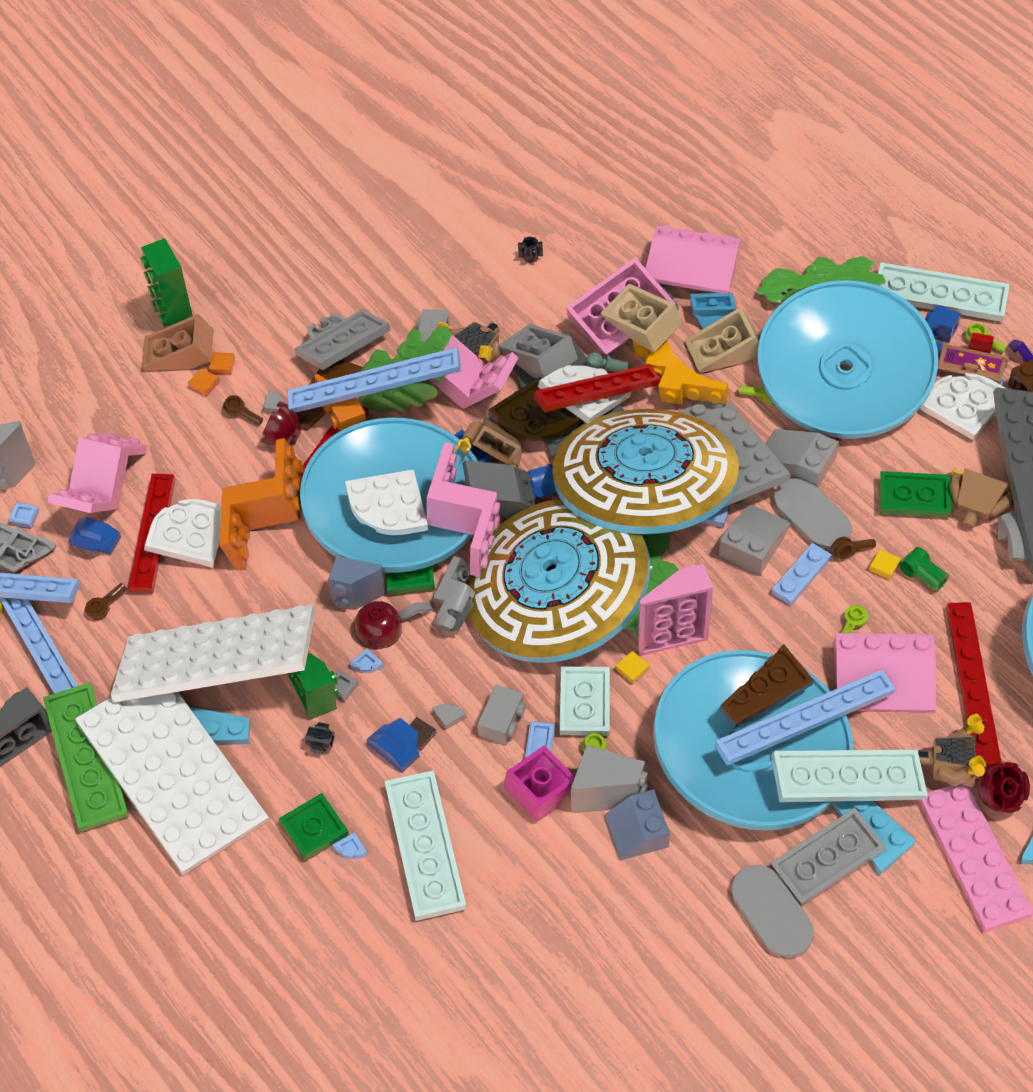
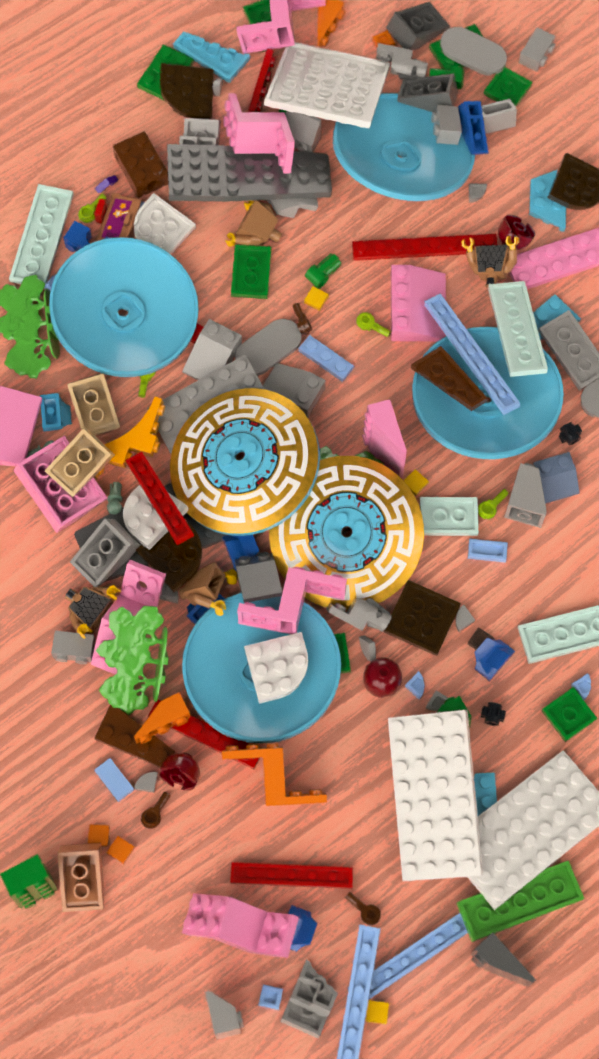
camera: 95 degrees left, 15 degrees up
(187, 532) = (294, 840): white plate -> none
(281, 374) = (114, 779): none -> light blue tile
(340, 337) = (79, 726): light grey plate -> none
(355, 583) = (351, 695): sand blue slope -> none
(374, 380) = (159, 678): light blue plate -> none
(450, 667) = (422, 617): none -> dark brown plate
(501, 715) = (465, 577): light grey brick -> none
(539, 783) = (528, 545): dark pink slope -> none
(702, 845) = (570, 433): none -> black gear

